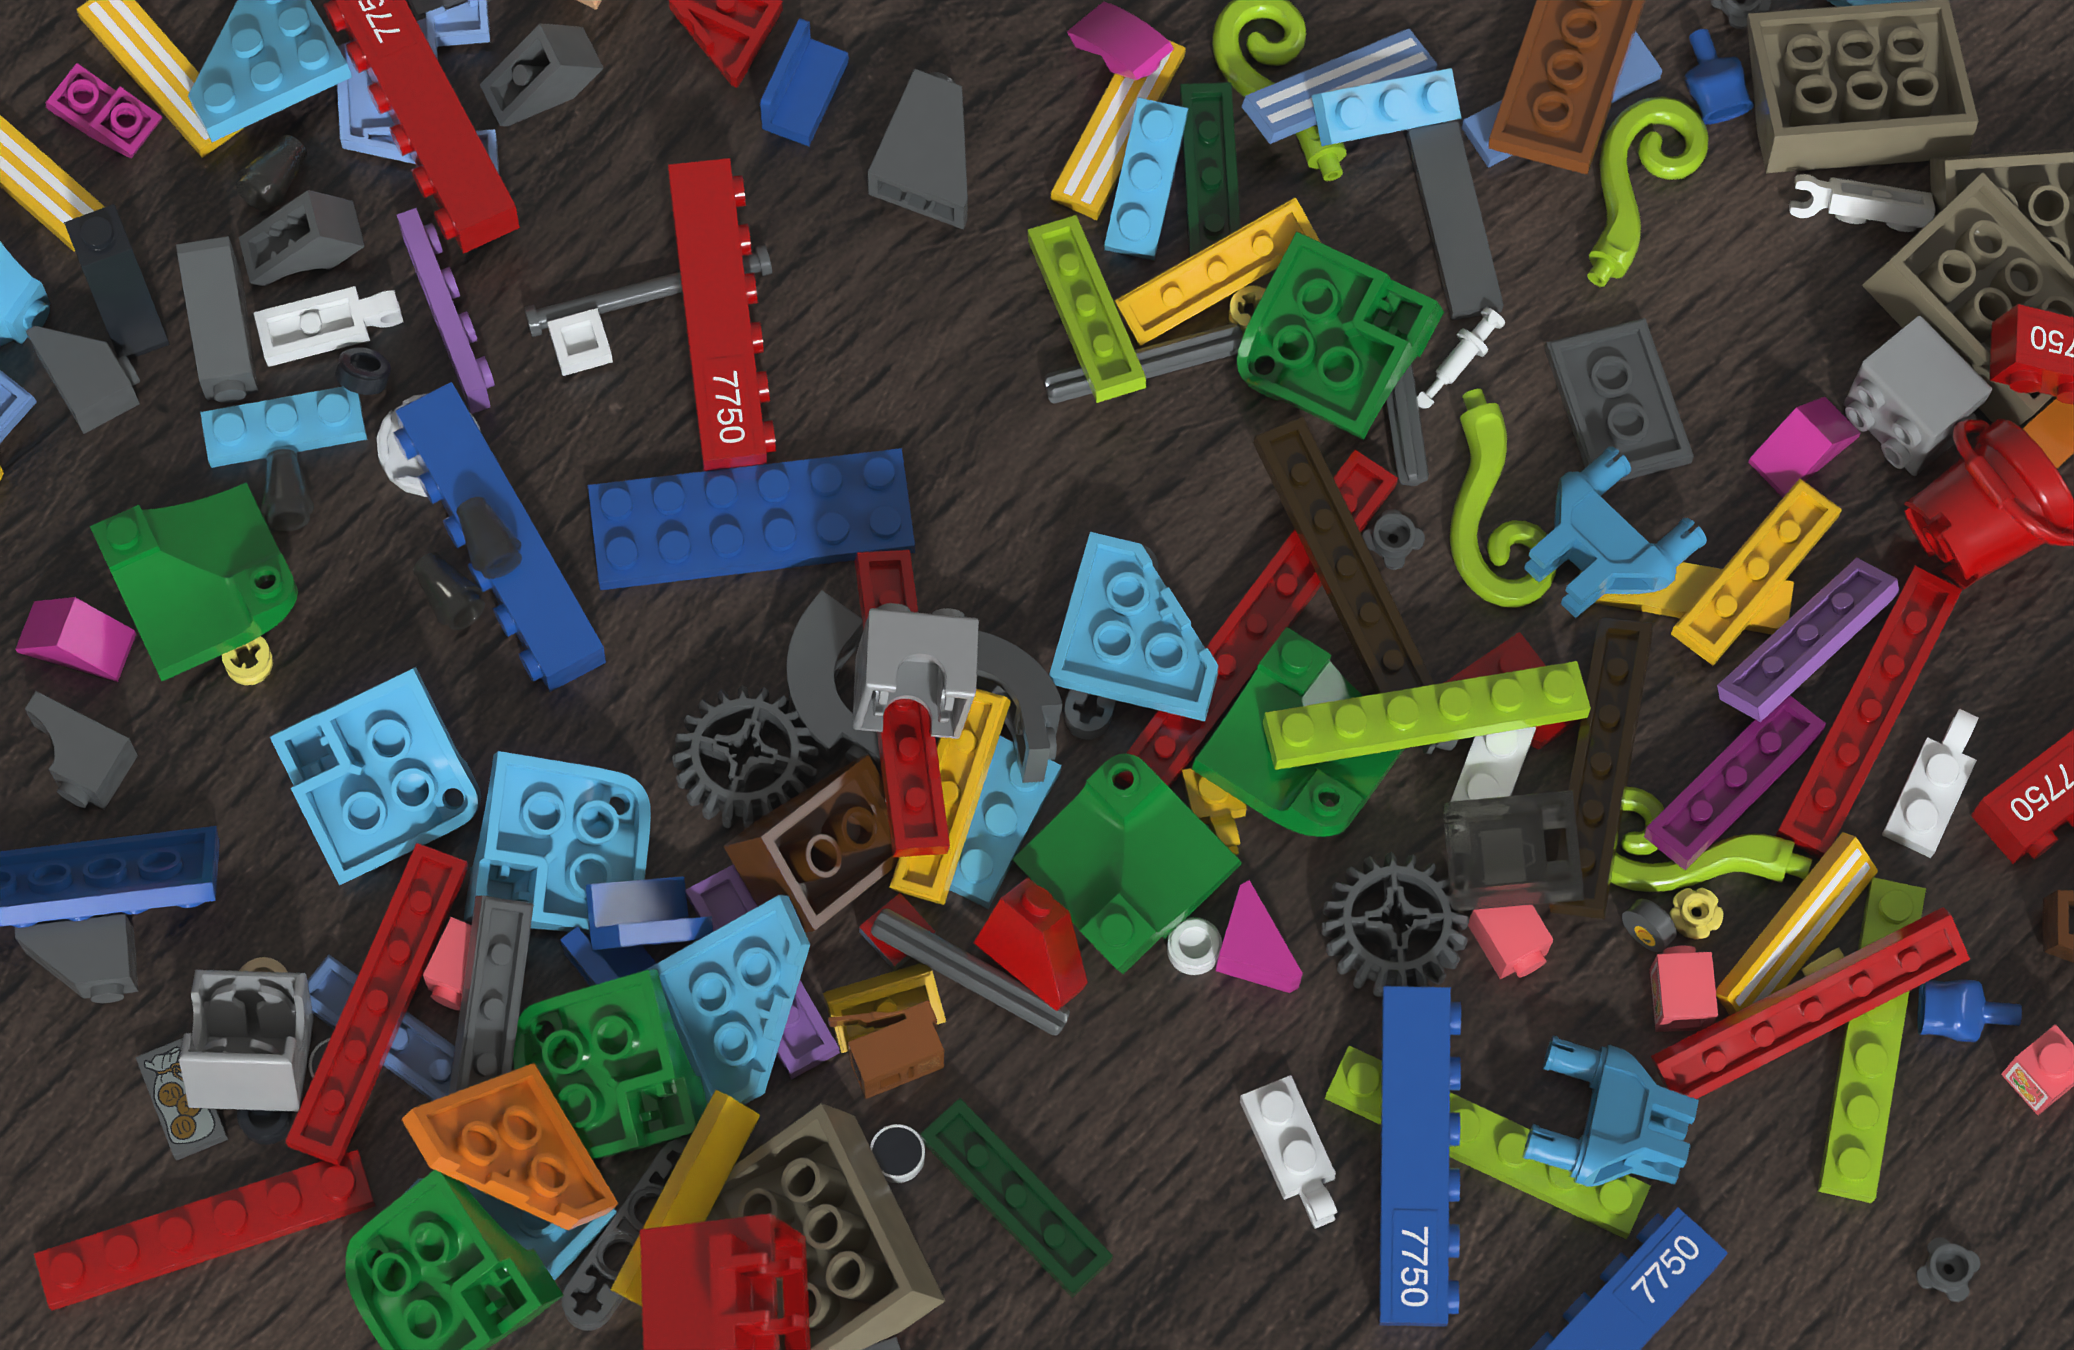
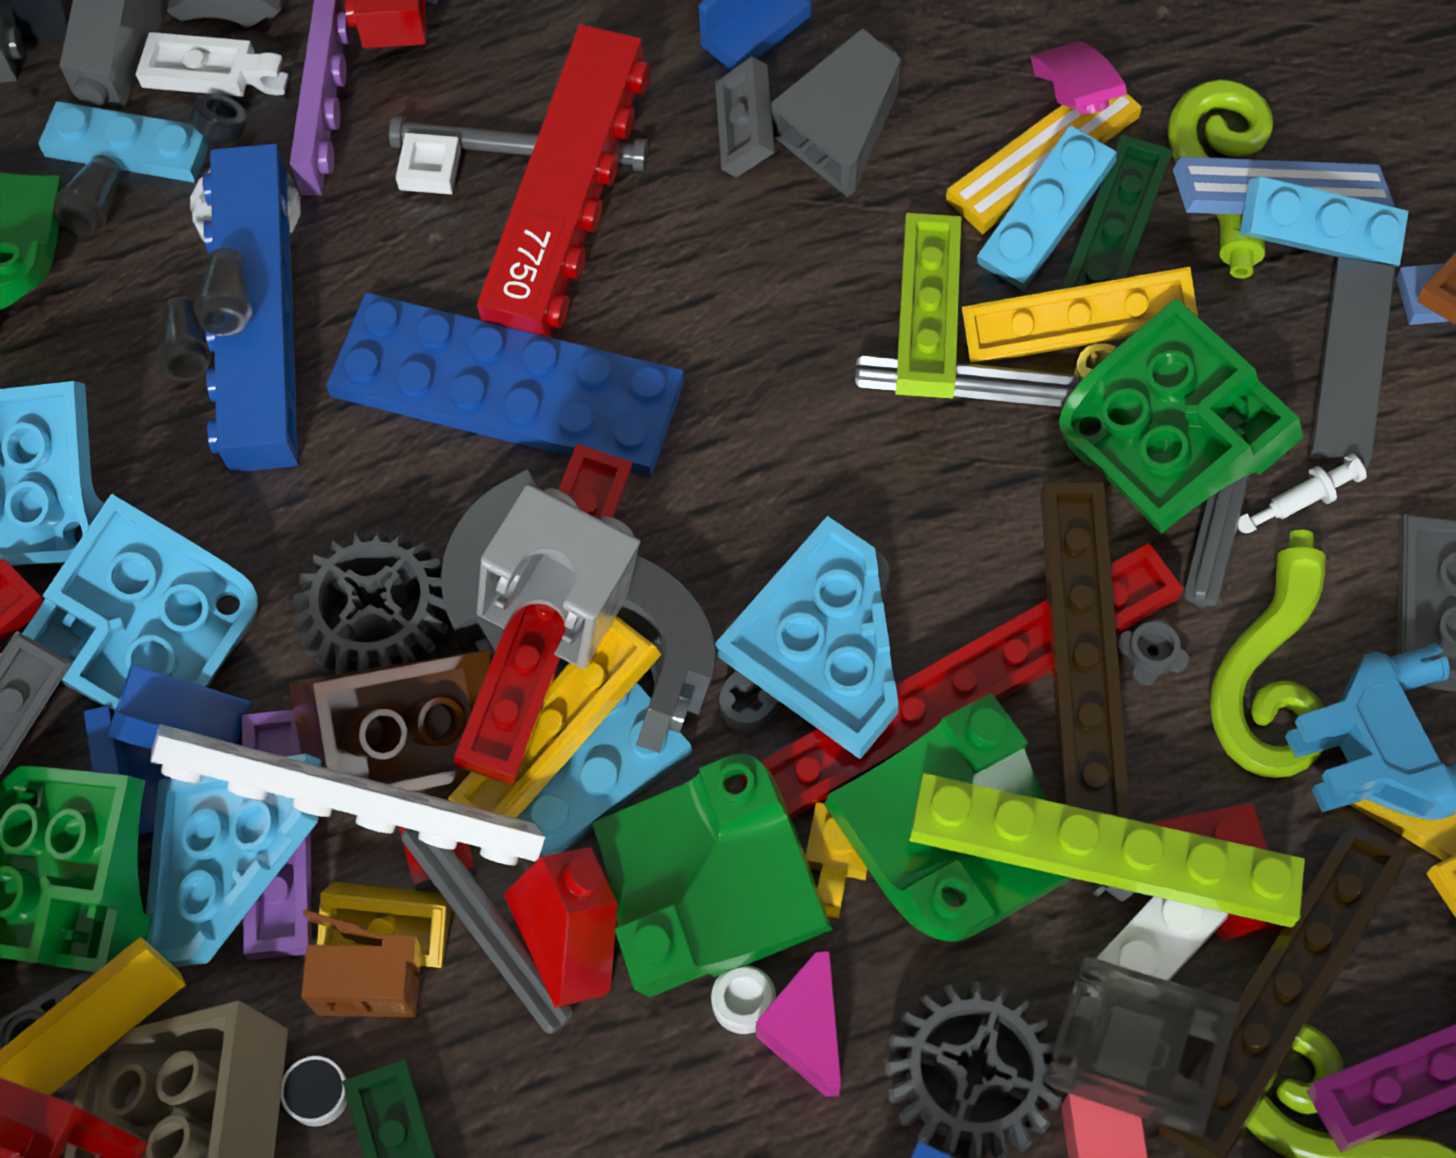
camera: 30 degrees right, 5 degrees down
(813, 915) = (321, 789): none -> white plate
(843, 190) = (744, 117): none -> dark grey plate

